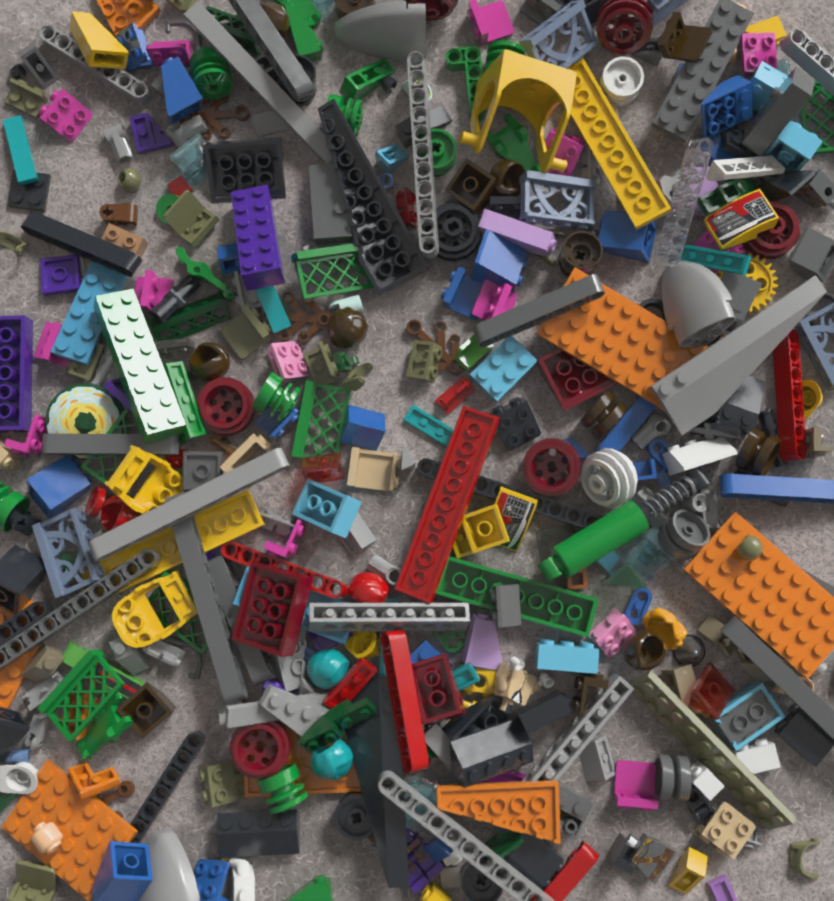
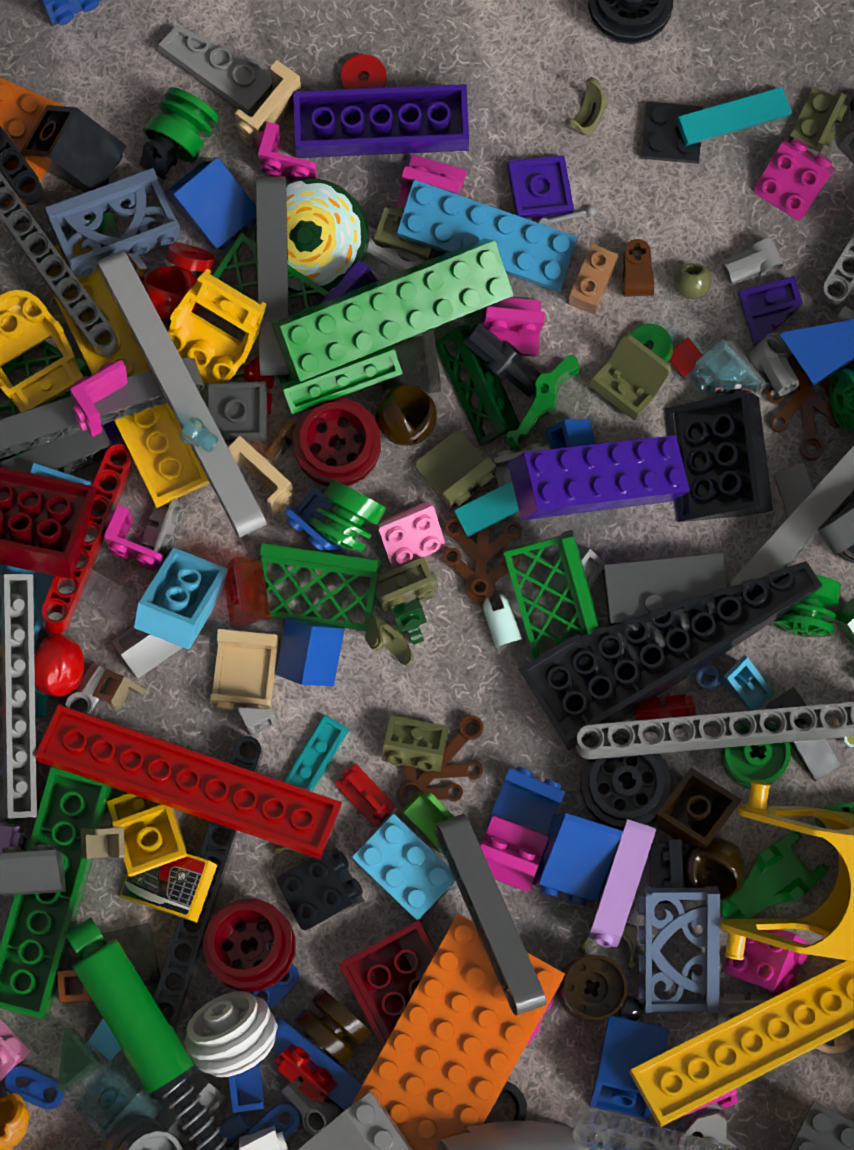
camera: 85 degrees right, 5 degrees down
(81, 243) = (585, 215): black beam -> none
(201, 565) = (93, 389): none -> dark pink bracket
(219, 490) = (198, 435): none -> clear light blue piece
(347, 327) = (465, 622): dark brown piece -> none
(384, 553) = (115, 688): none -> dark tan panel
(485, 558) = (102, 842): none -> dark tan panel
(626, 437) = (317, 1081): none -> red hinge

